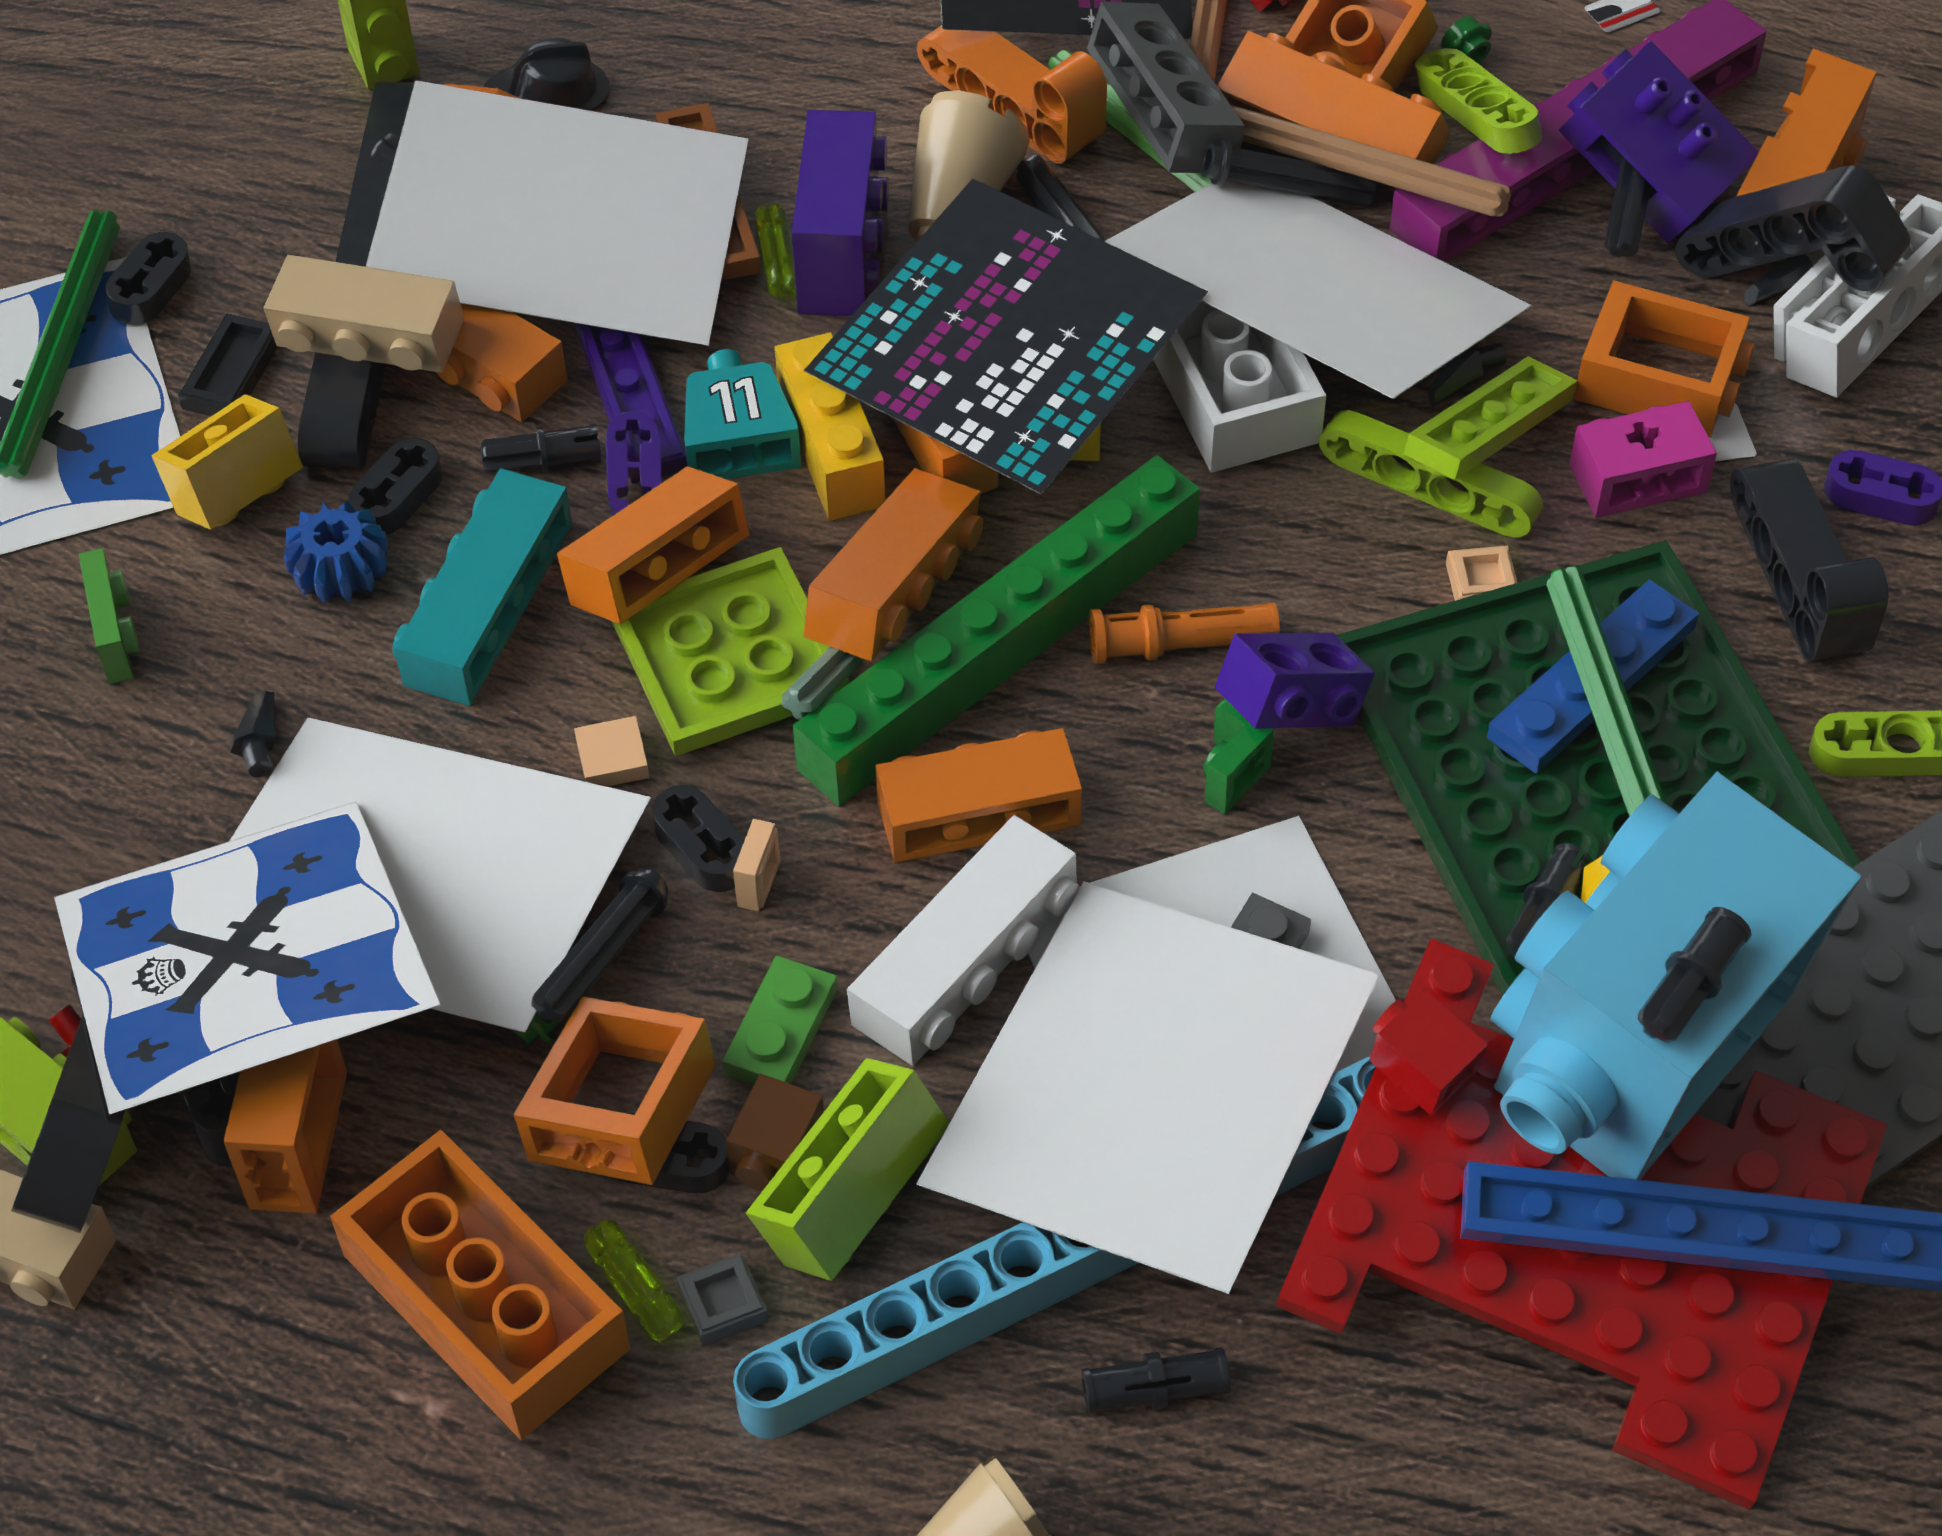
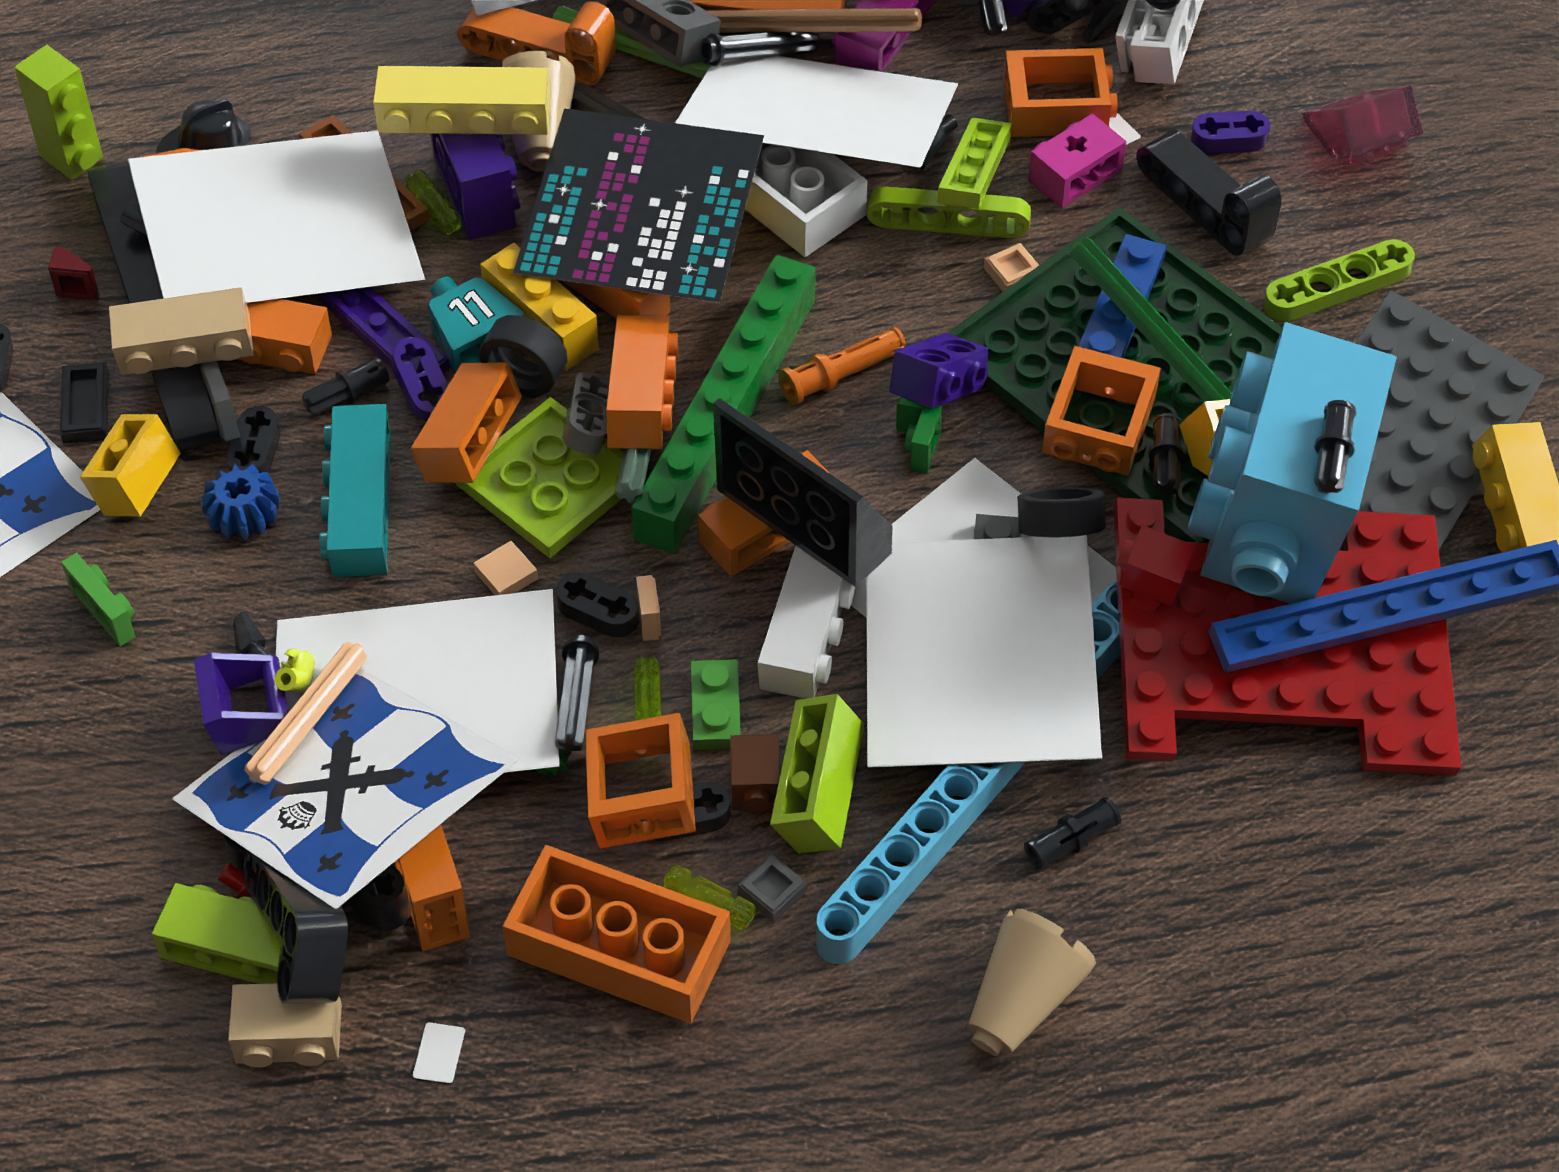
camera: 25 degrees left, 0 degrees up
(169, 788) = (226, 671): none -> dark purple tile
(197, 1350) = (439, 1052): none -> white sticker
(254, 847) = (305, 713): none -> light nougat axle
(283, 796) = (296, 672): none -> neon yellow arm
(293, 206) = (72, 276): none -> dark red slope
(374, 416) = (219, 400): none -> dark grey tile
(702, 973) = (647, 688): none -> clear neon green axle
(773, 479) = (532, 340): none -> black tyre
(792, 587) = (586, 413): none -> dark grey beam
(842, 128) = (462, 100): none -> light yellow brick
(1000, 786) = (798, 497): none -> black slope
(1359, 931) = (1061, 512): none -> black tyre
(1516, 766) = (1109, 378): none -> orange window

